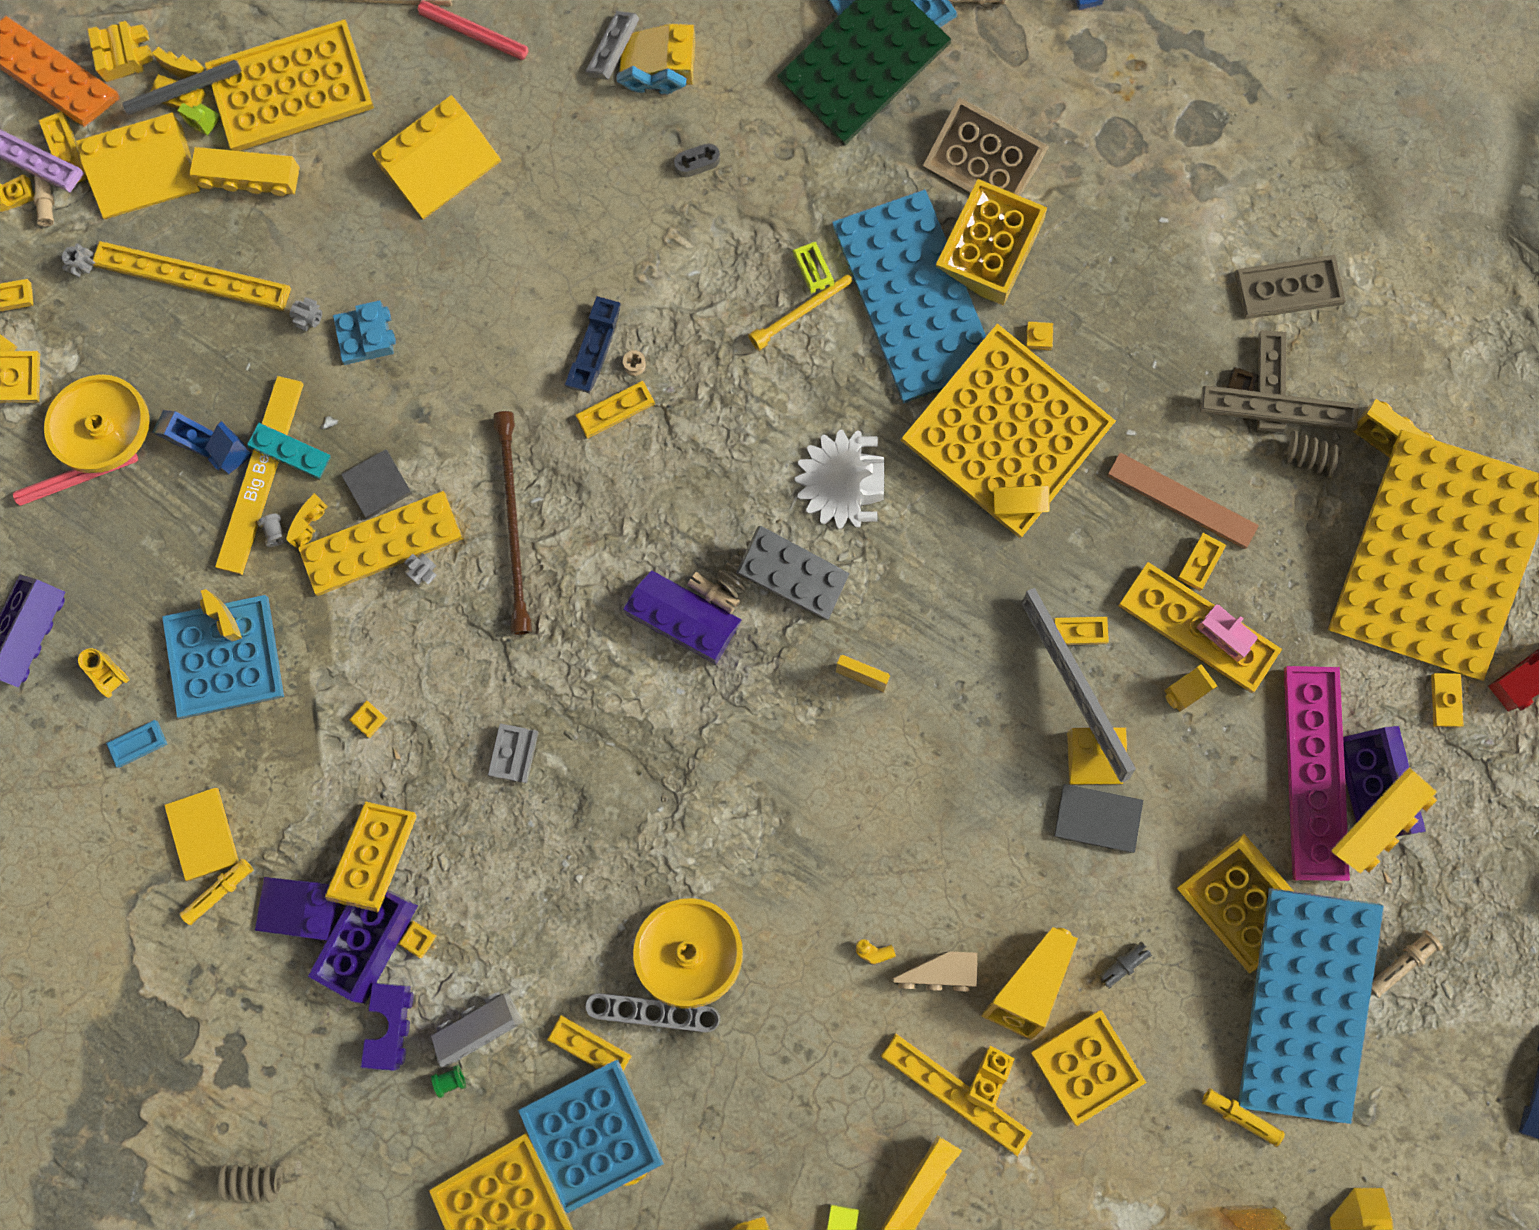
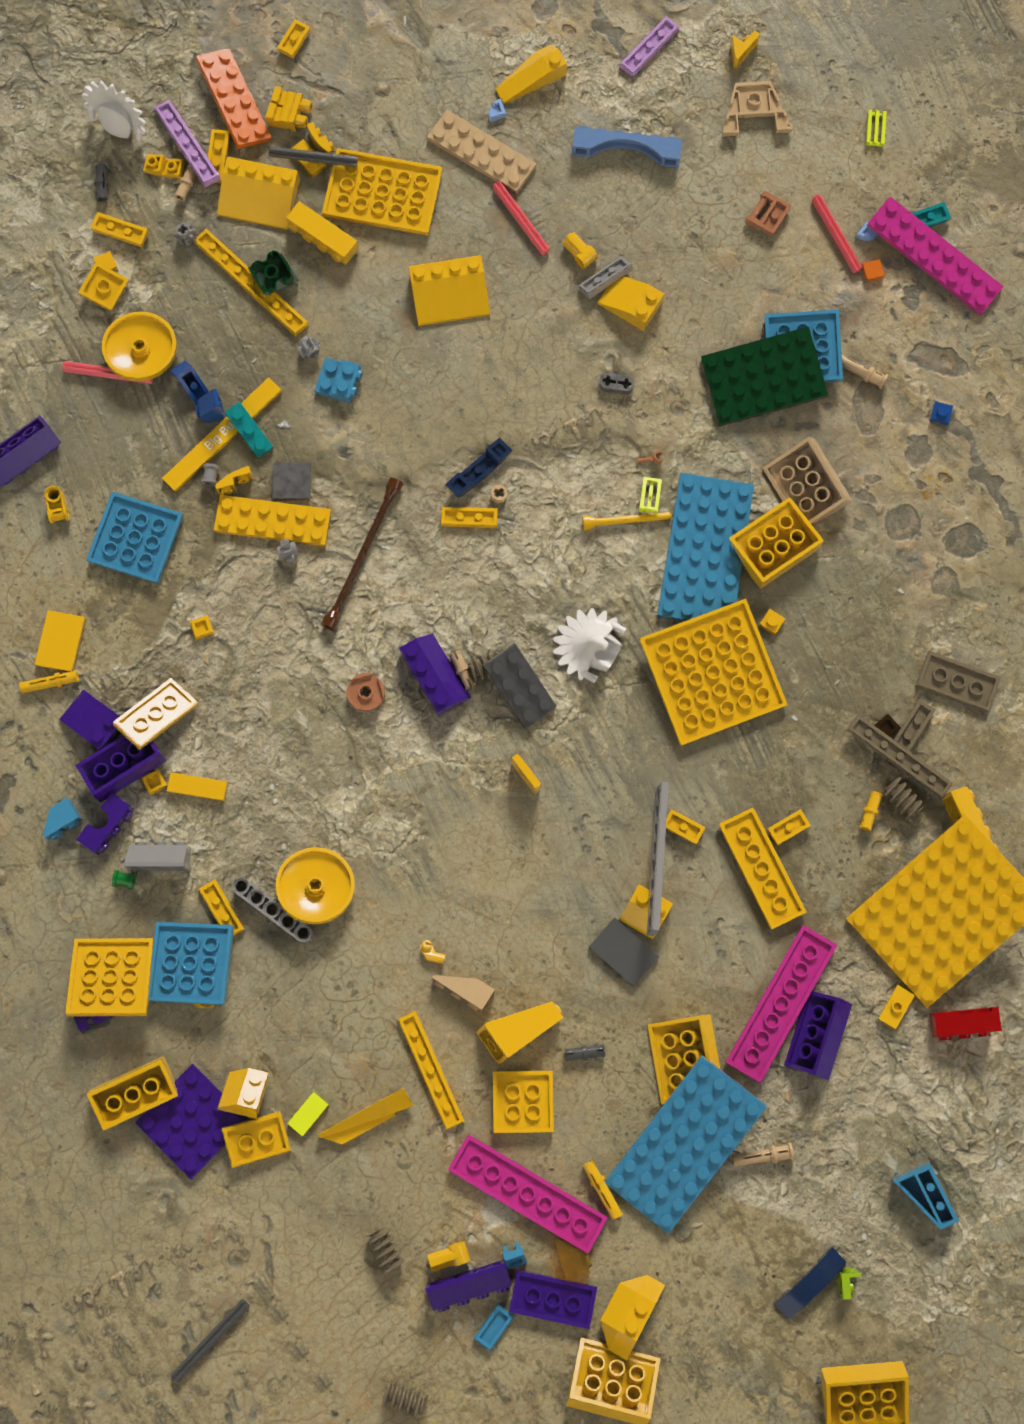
camera: 25 degrees right, 0 degrees up
(136, 744) = (52, 562): dark azure tile -> none
(199, 117) = (313, 182): lime bracket -> none
(211, 249) = (272, 273): none -> dark green slope
(217, 610) = (147, 505): yellow slope -> none
(327, 1050) = (60, 818): none -> dark azure slope
(473, 915) = (197, 786): none -> yellow tile
(513, 753) = (279, 700): light grey plate -> none
(570, 32) = (582, 253): none -> yellow piece
(613, 700) = (356, 687): none -> nougat plate
(664, 81) = (625, 320): dark azure tile -> none
(791, 223) = (651, 458): none -> nougat hand
(990, 1078) = (457, 1072): yellow slope -> none
(1021, 499) = (693, 721): yellow slope -> none
(1159, 1175) = (528, 1193): none -> dark pink plate
(1183, 500) = (801, 781): nougat tile -> none
(1189, 688) = (729, 903): yellow slope -> none
(1227, 632) = (776, 881): bright pink panel -> none
(1283, 489) = (871, 811): none -> yellow pin
(1385, 821) = (799, 1054): yellow slope -> none

